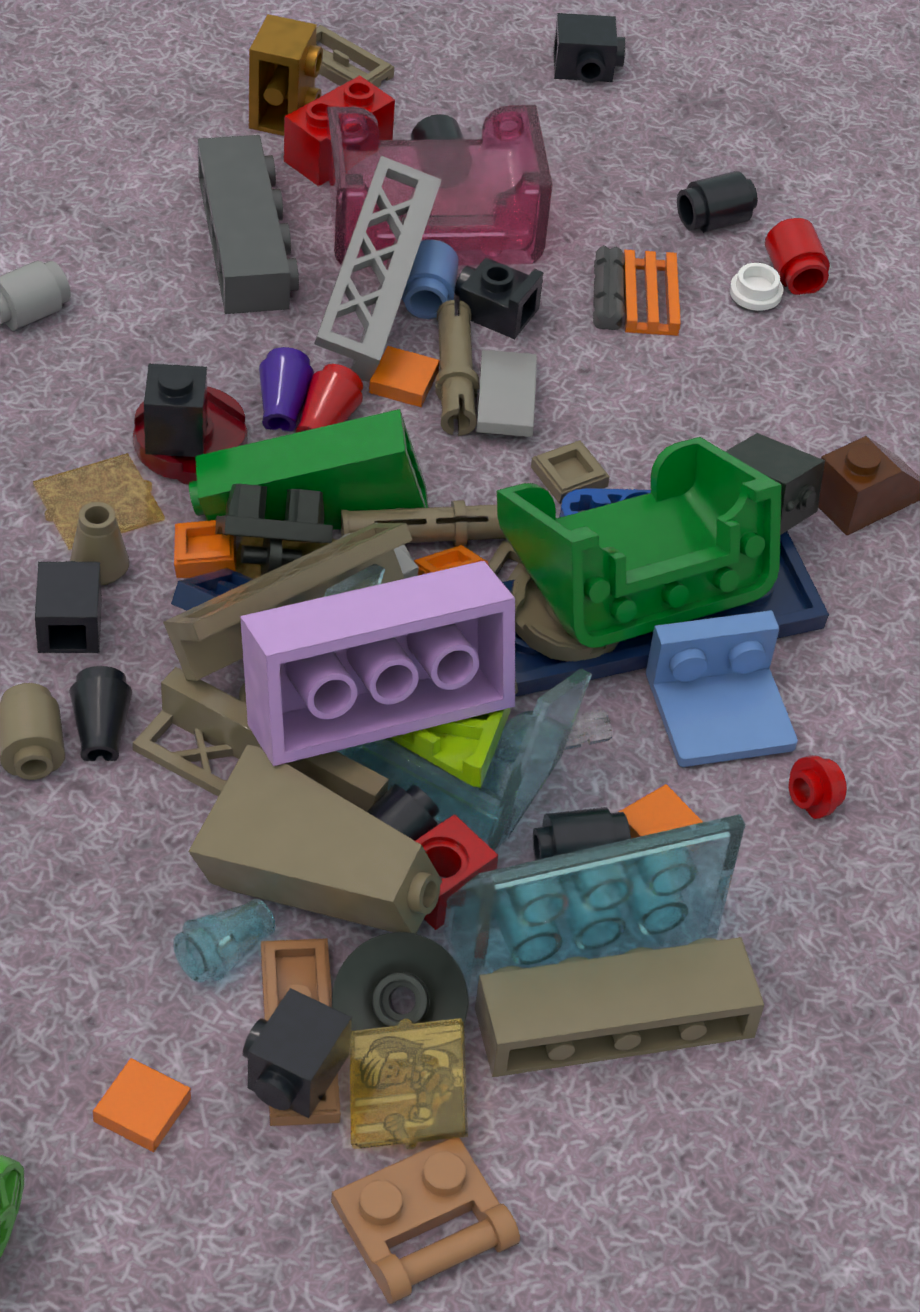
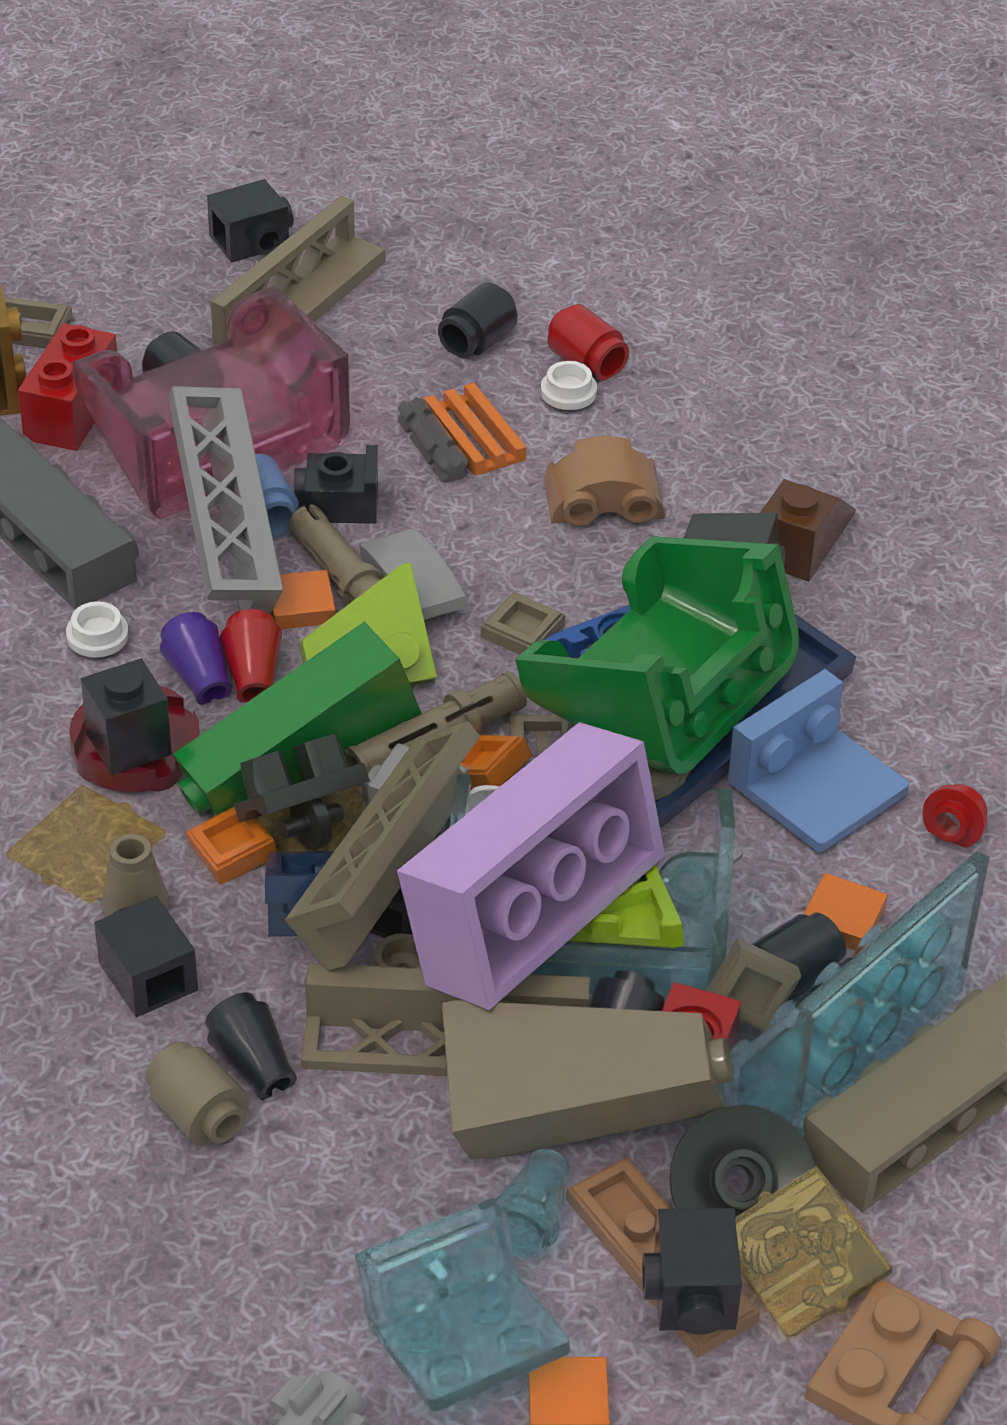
camera: 25 degrees left, 5 degrees down
(96, 990) = (456, 1308): none -> clear light blue bracket
(224, 335) = (97, 630): none -> white plate
(442, 427) = (393, 614): none -> lime wing
(523, 838) = (757, 980): none -> dark tan tile
(615, 119) = (323, 275): none -> dark tan fence
(727, 377) = (603, 478): none -> medium nougat cylinder

